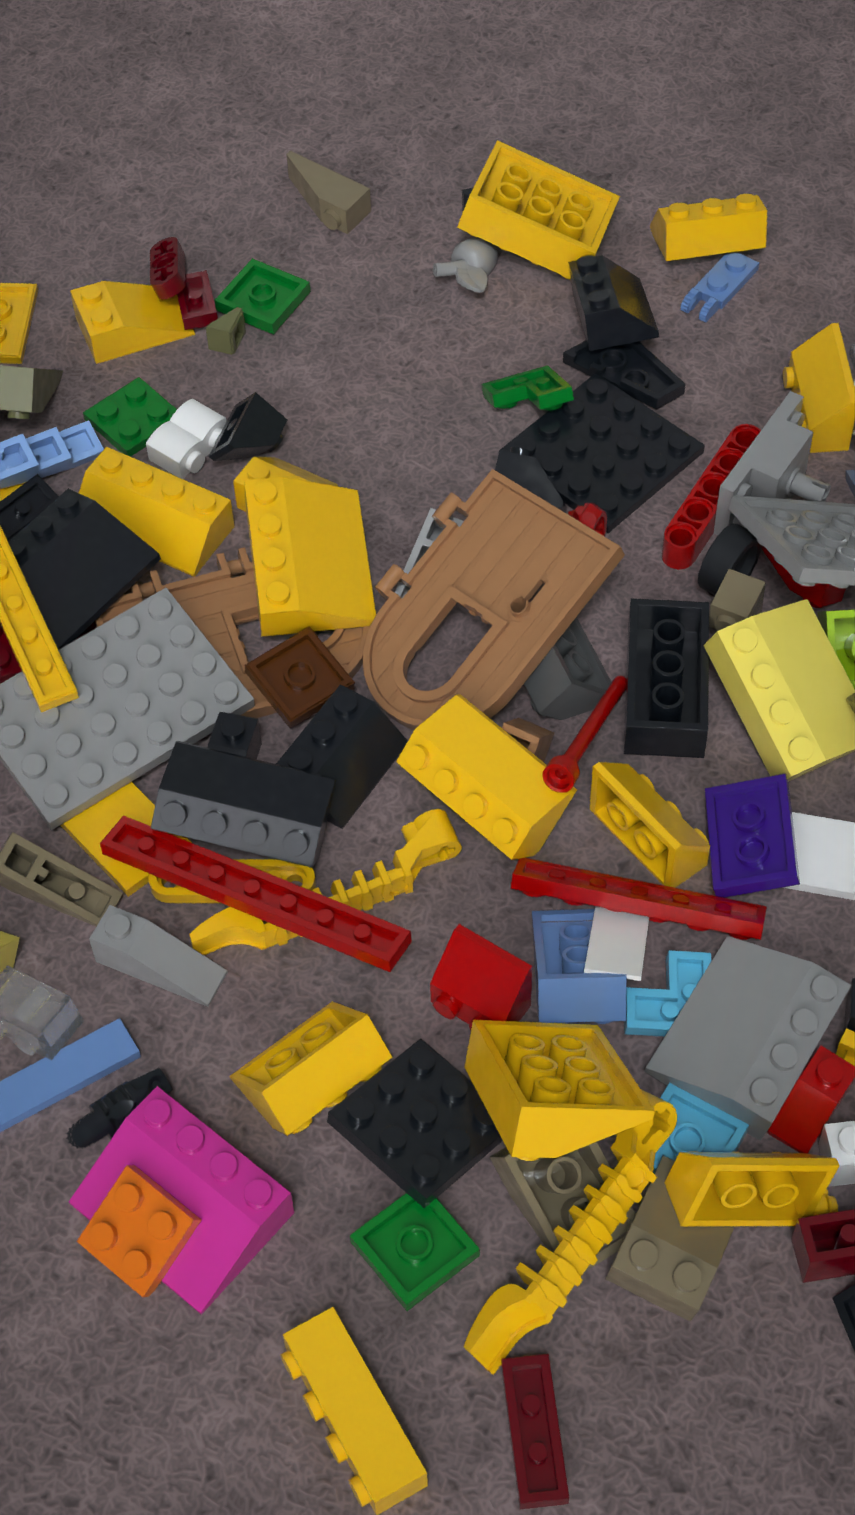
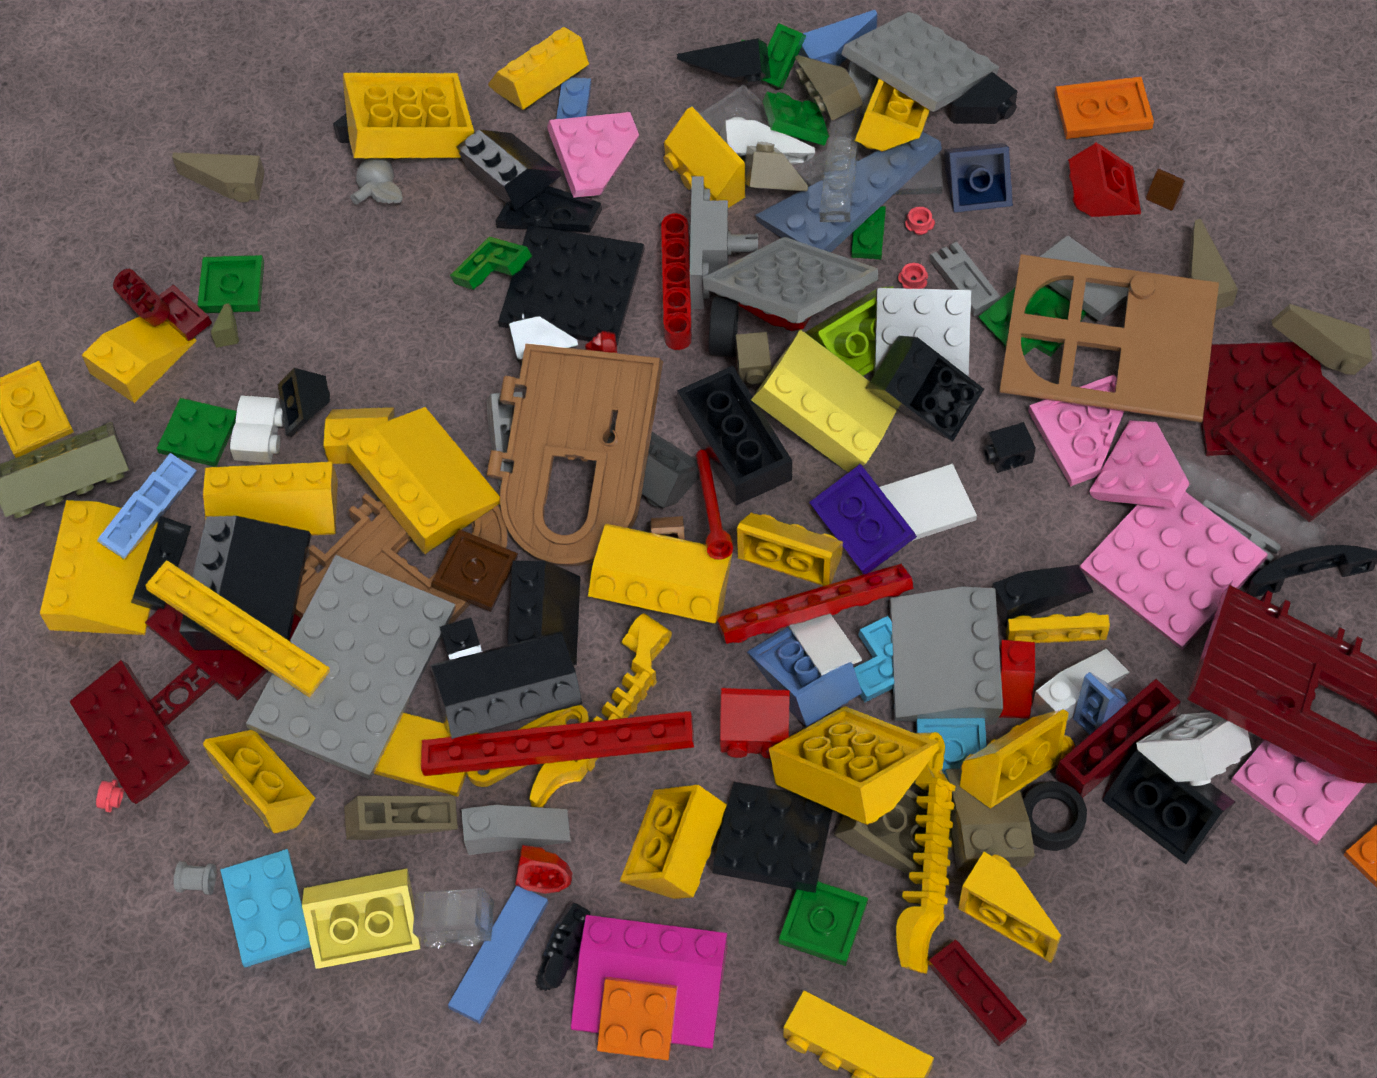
camera: 30 degrees left, 5 degrees up
(151, 1017) = (542, 871): none -> red rock
(622, 1330) = (1004, 903): none -> yellow slope
(712, 328) = (592, 149): none -> bright pink plate
(747, 1313) = (1066, 794): none -> black tyre

